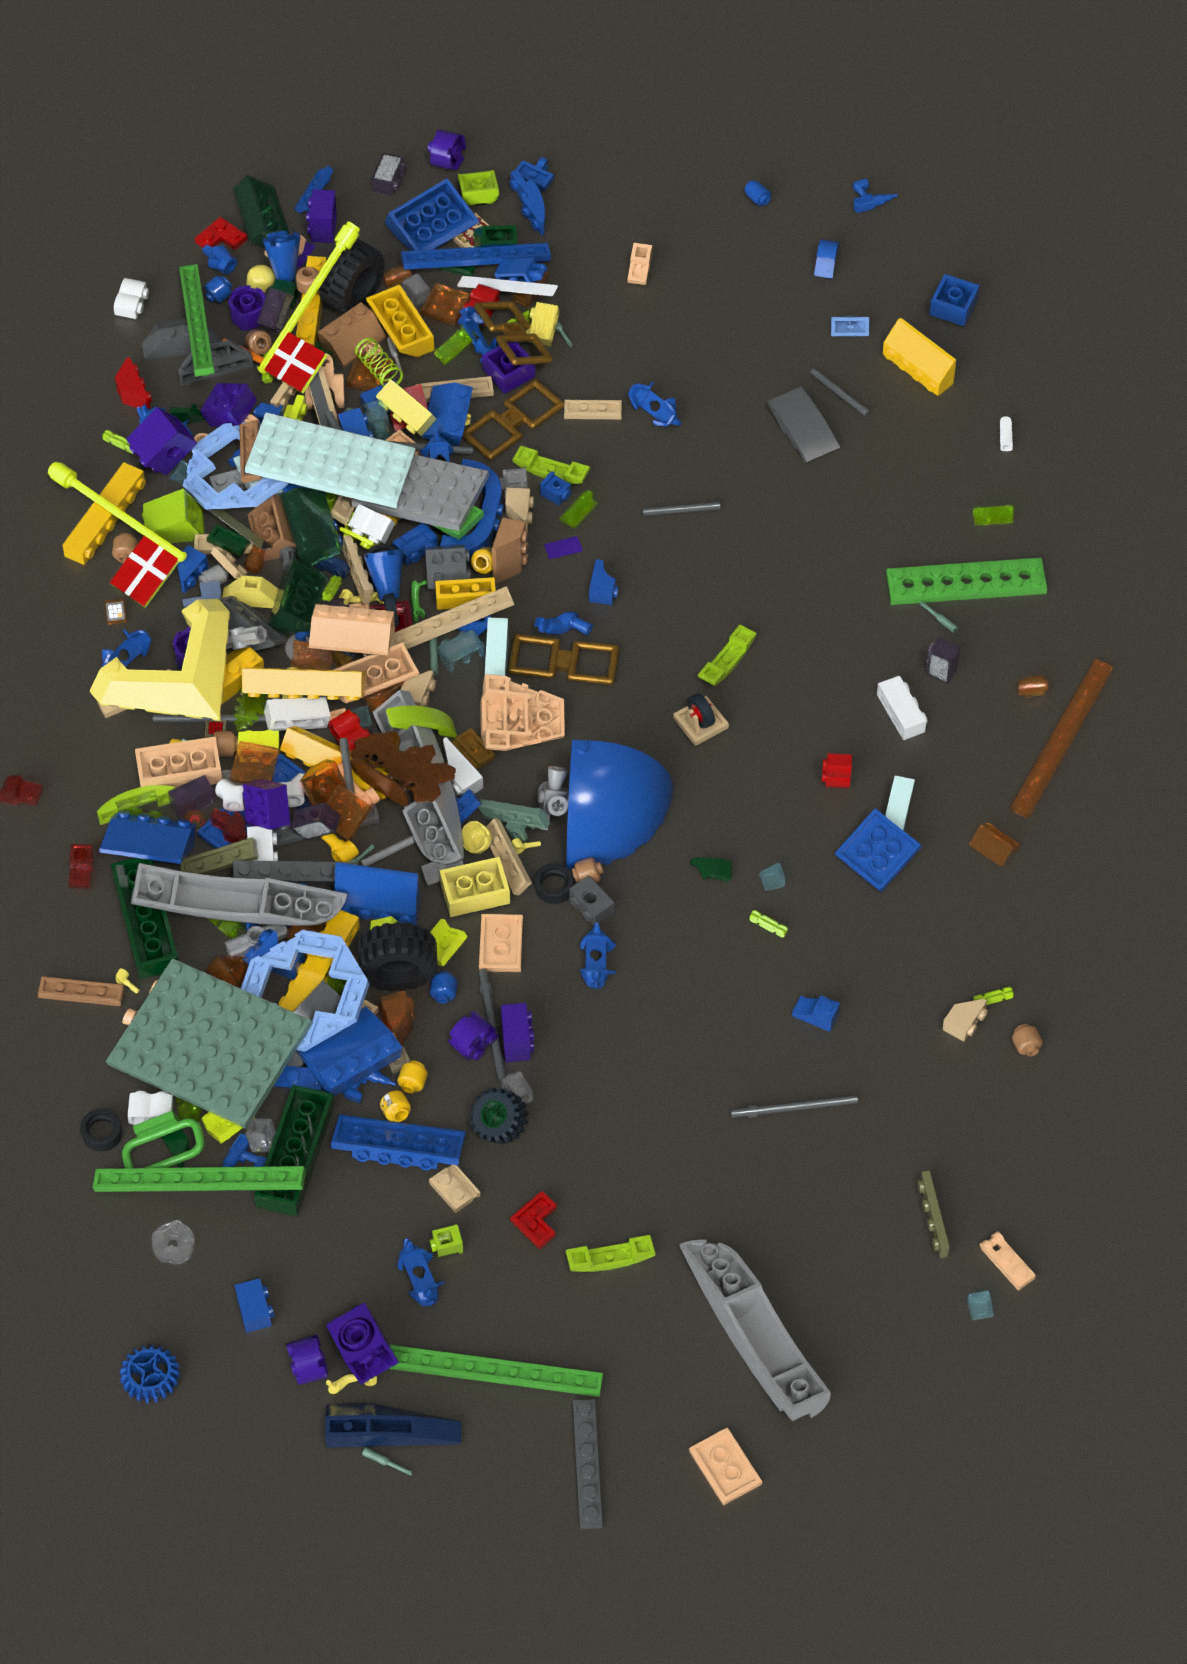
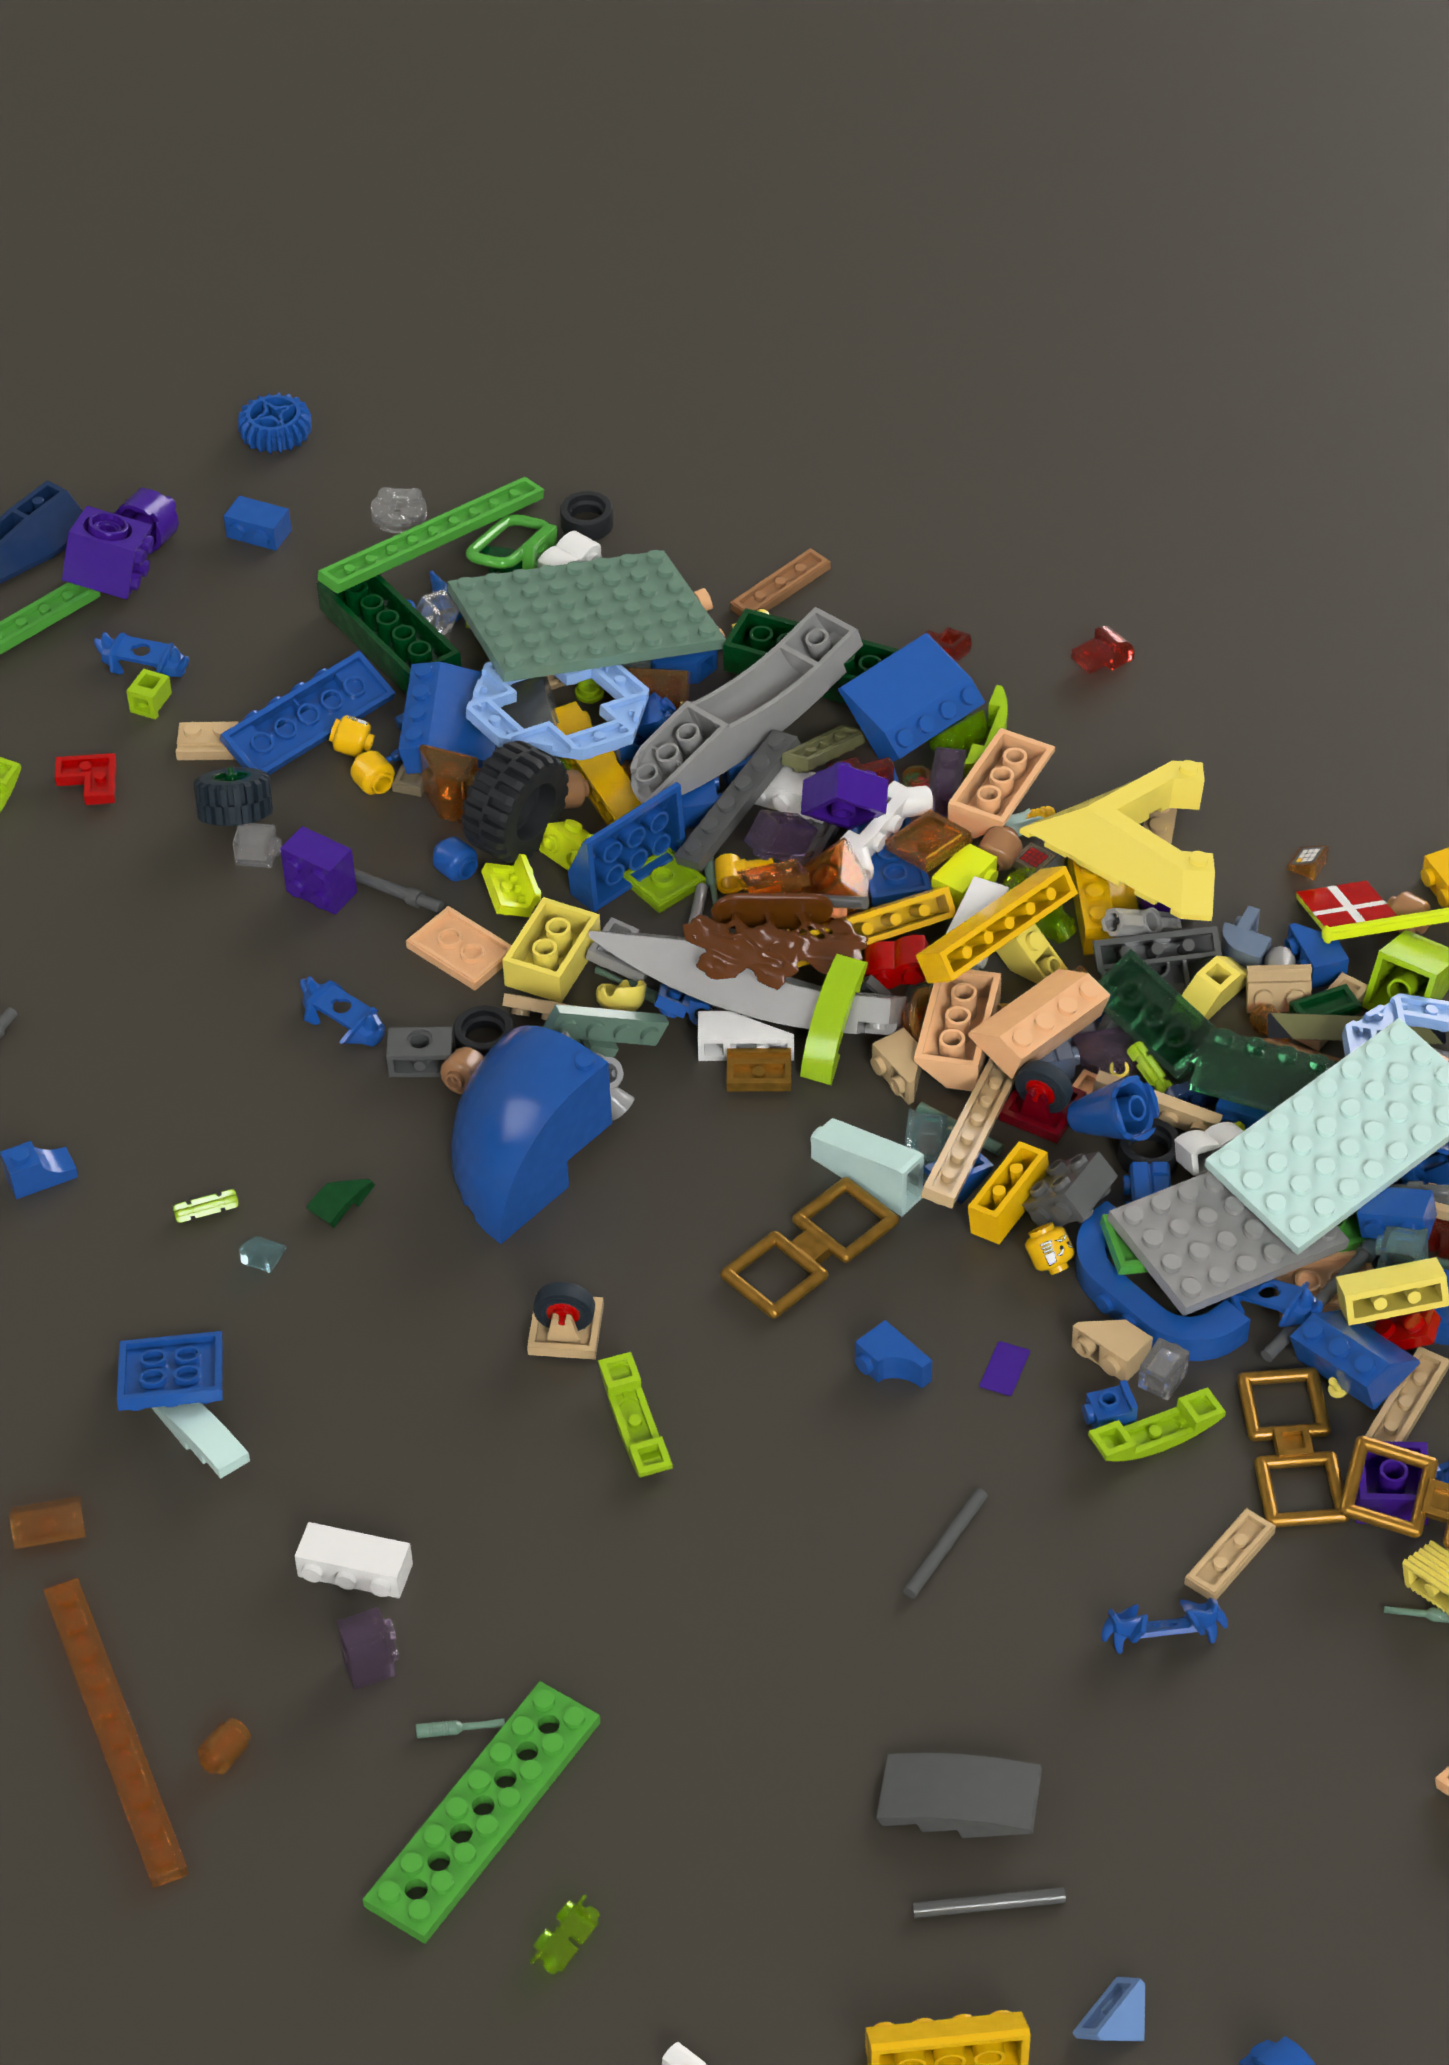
camera: 130 degrees right, 10 degrees down
(136, 643) = (1217, 810): blue piece -> none
(415, 600) = (1053, 1151): bright green piece -> none
(472, 1036) = (357, 830): dark purple brick -> none
(509, 549) = (1032, 1260): medium nougat slope -> none
(518, 715) = (753, 1129): light nougat wedge -> none
(563, 624) = (868, 1274): blue arm -> none
(579, 509) = (1050, 1415): clear neon green hinge -> none
(837, 770) = (325, 1401): red brick -> none

